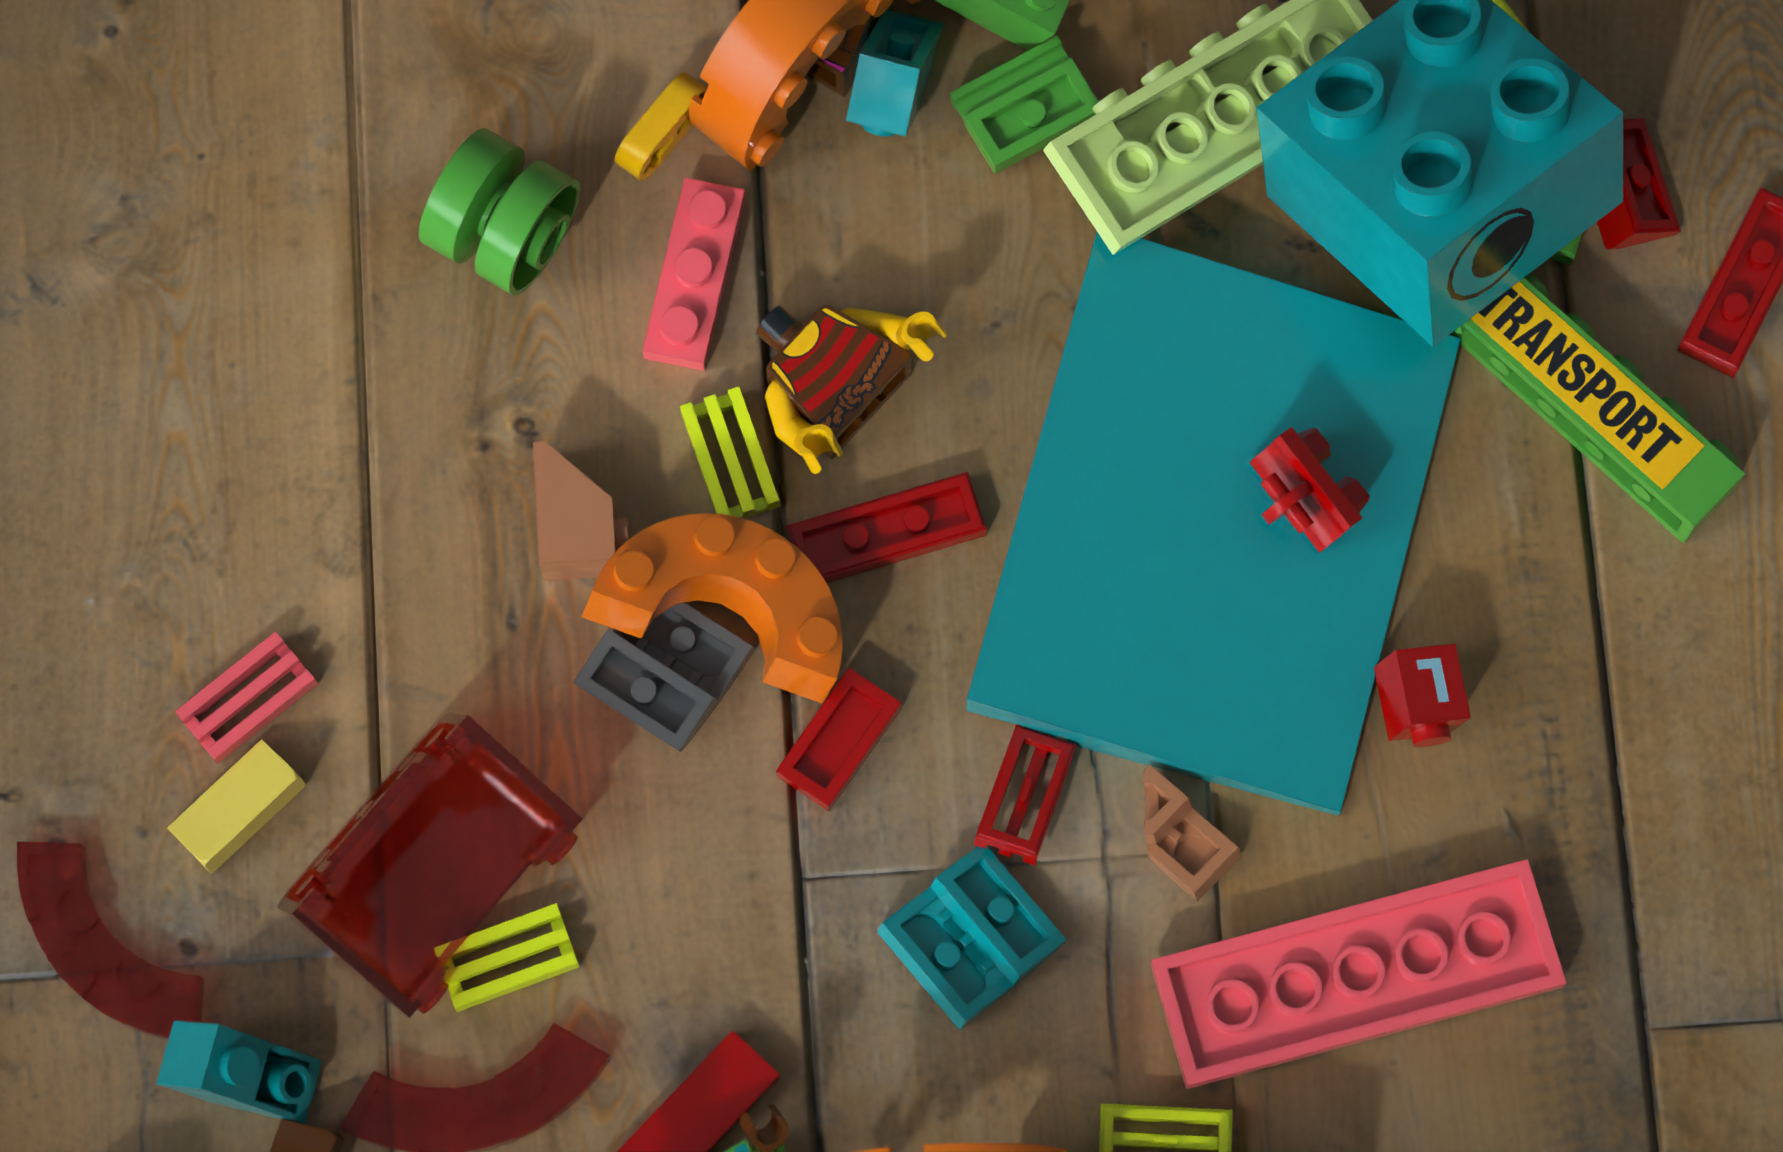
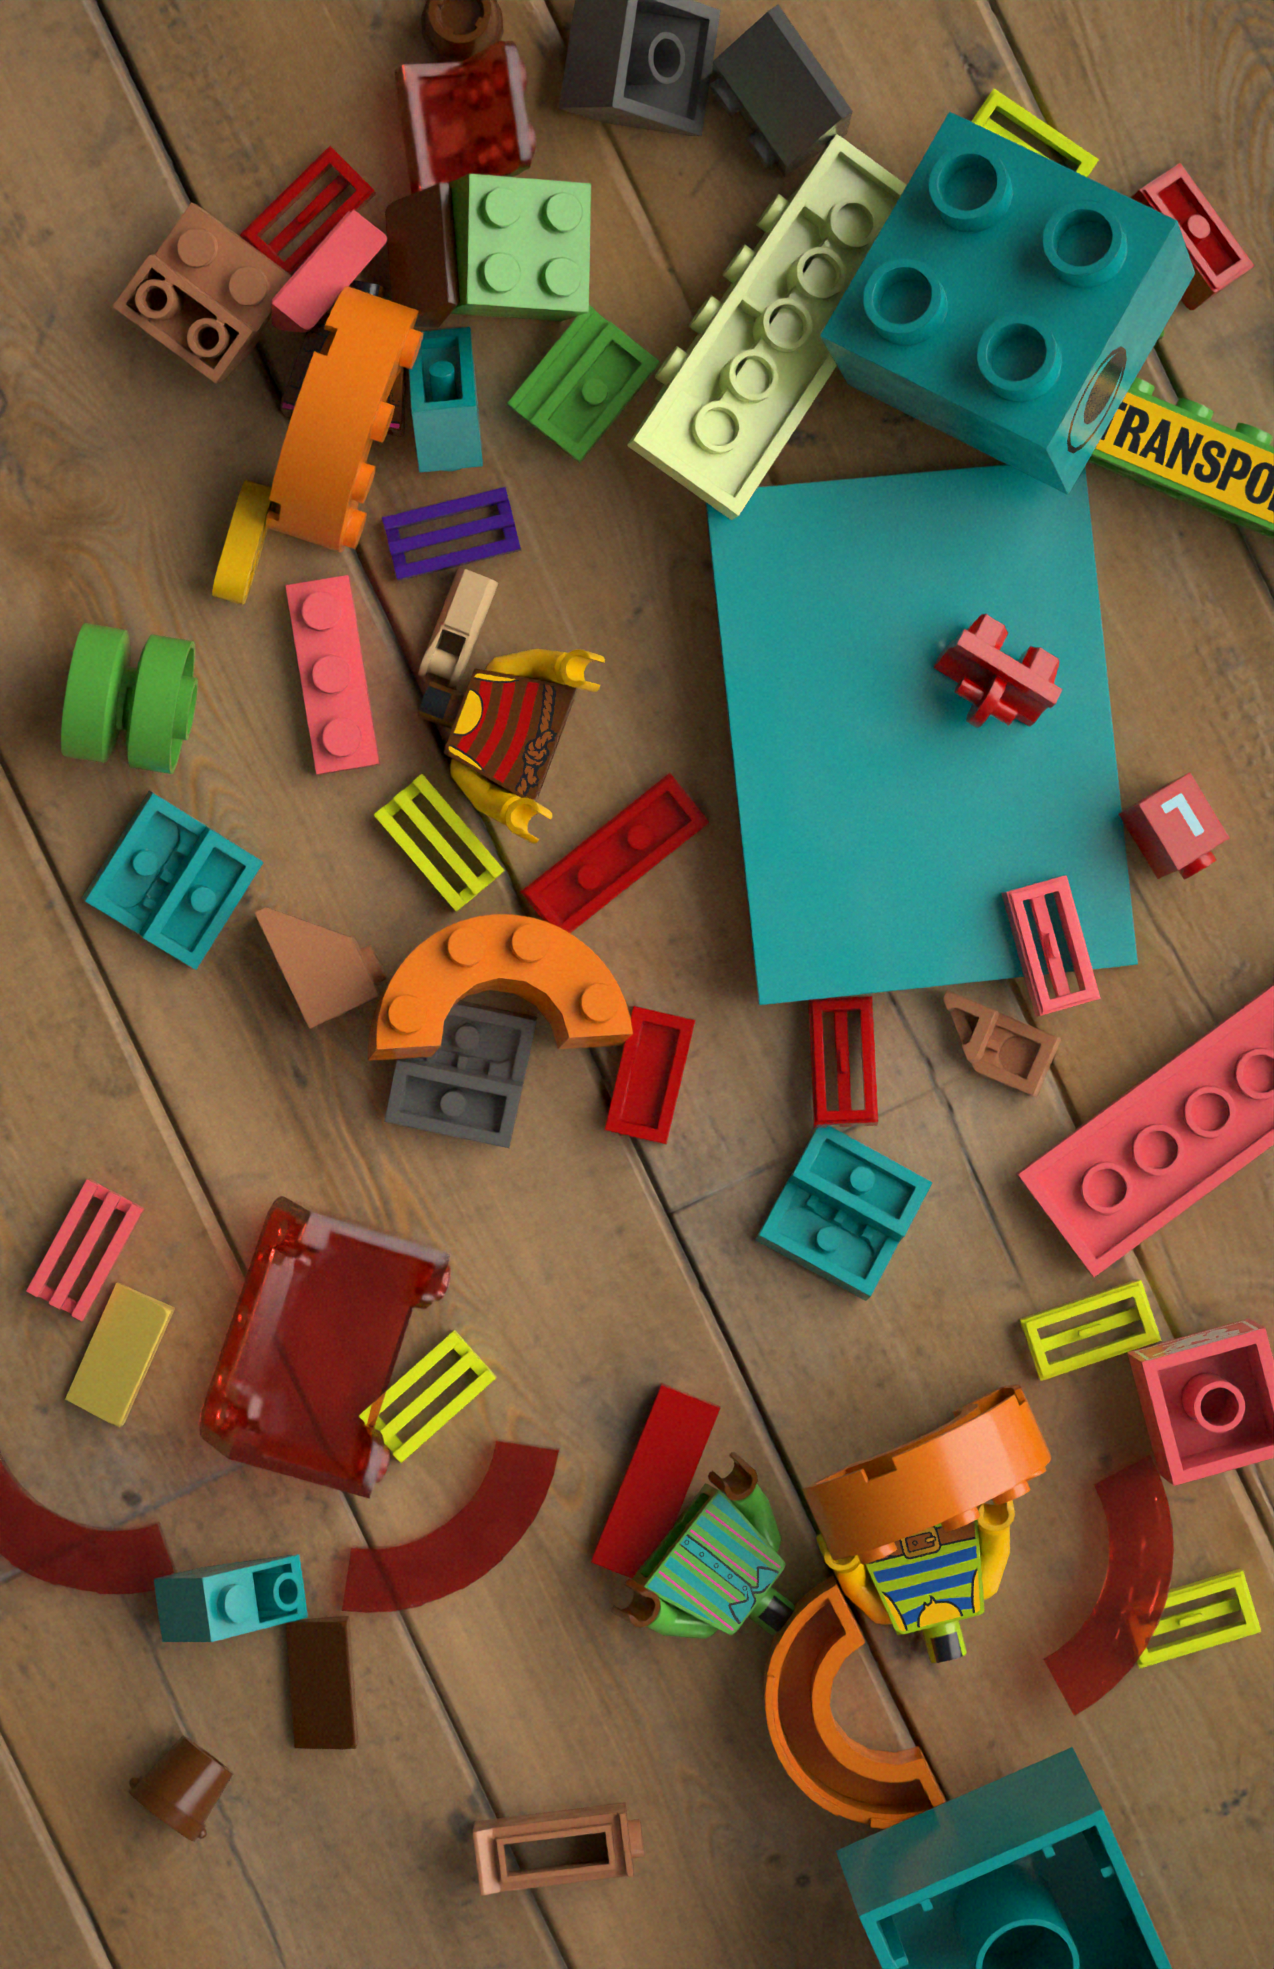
camera: 25 degrees left, 15 degrees up
(471, 397) = (172, 880): none -> teal slope
(831, 266) = (460, 616): none -> tan bar
(853, 169) = (445, 509): none -> dark purple tile
(1258, 810) = (1027, 952): none -> coral tile

